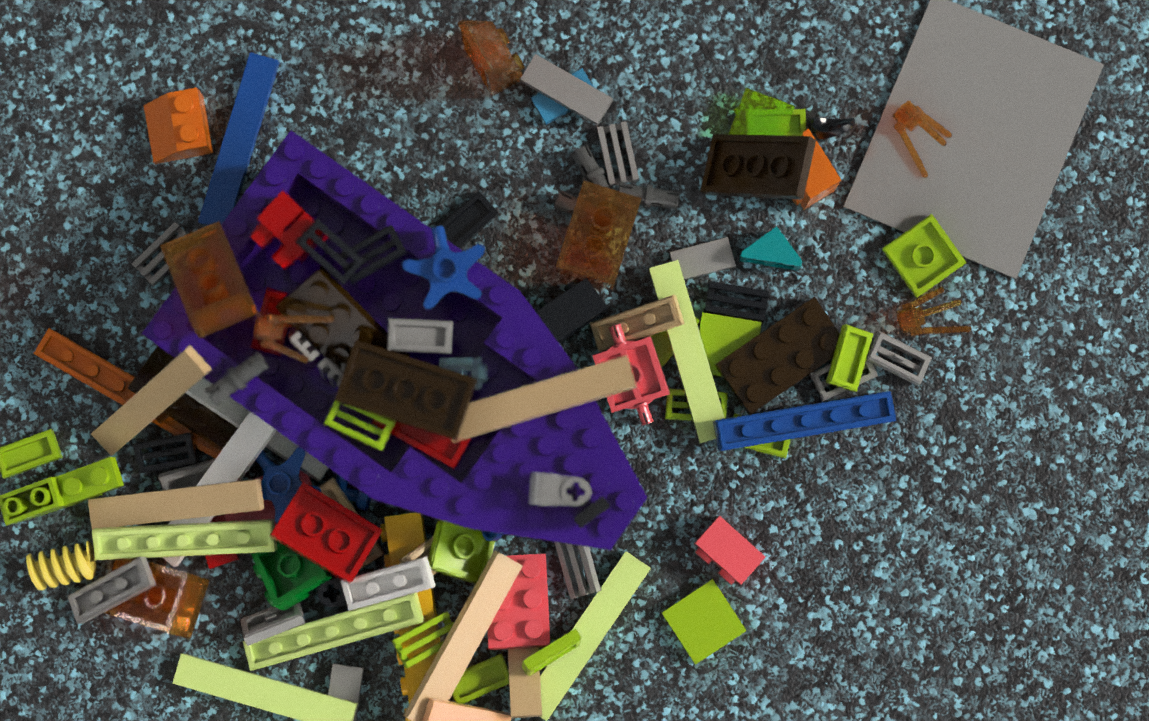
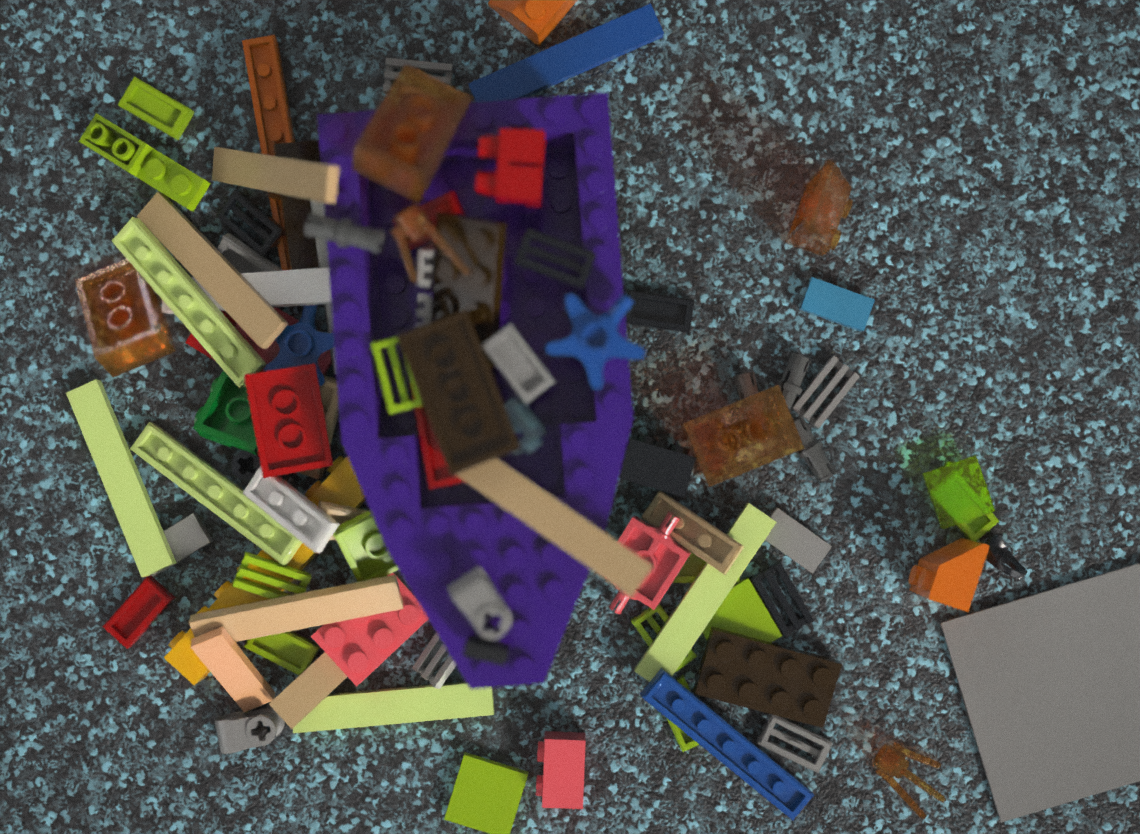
camera: 50 degrees right, 5 degrees up
(62, 568) = (82, 217): light yellow piece -> none
(111, 590) = (98, 276): light grey tile -> none
(270, 623) = (181, 435): light grey tile -> none
(309, 233) = (525, 188): black tile -> none
(551, 652) = (350, 694): lime tile -> none
(566, 89) = (844, 302): light grey tile -> none
(758, 166) = (919, 528): dark brown plate -> none
(772, 251) = (852, 595): teal slope -> none
(849, 358) = (814, 738): lime tile -> none
(876, 348) = (841, 753): light grey tile -> none
(911, 117) = (1067, 619): clear orange plant -> none
(924, 255) = (955, 727): lime tile -> none

